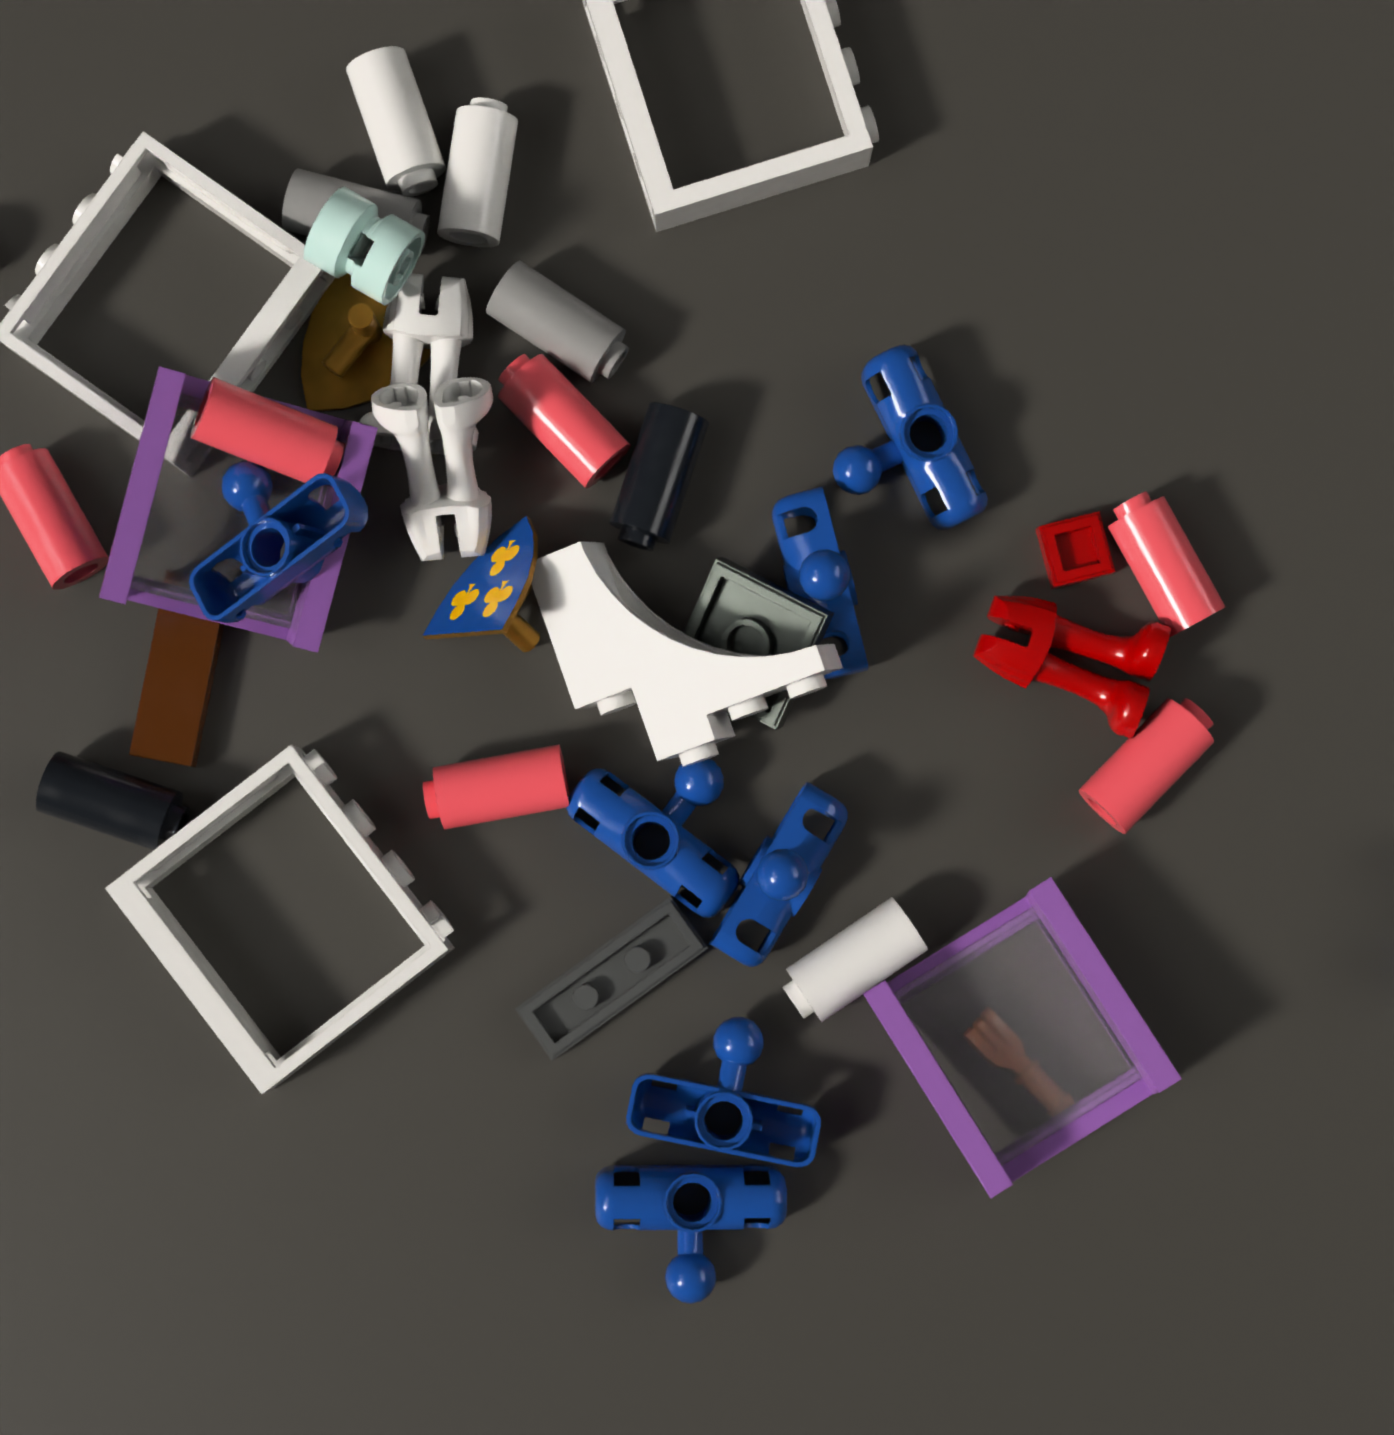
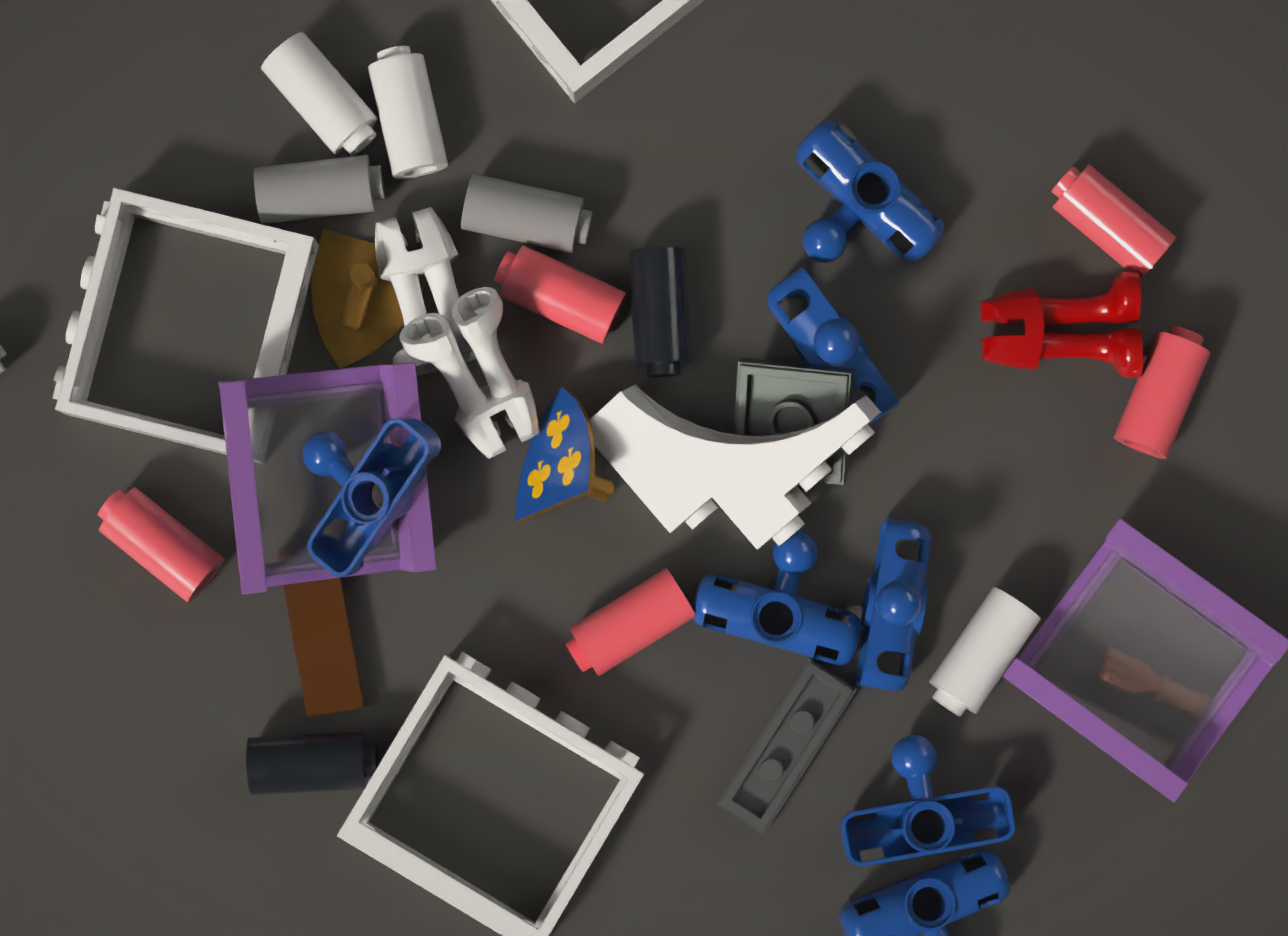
camera: 25 degrees left, 0 degrees up
(266, 432) = (325, 402): coral brick -> none
(346, 232) = (323, 209): light aqua wheel -> none
(1075, 550) = (1032, 237): red tile -> none

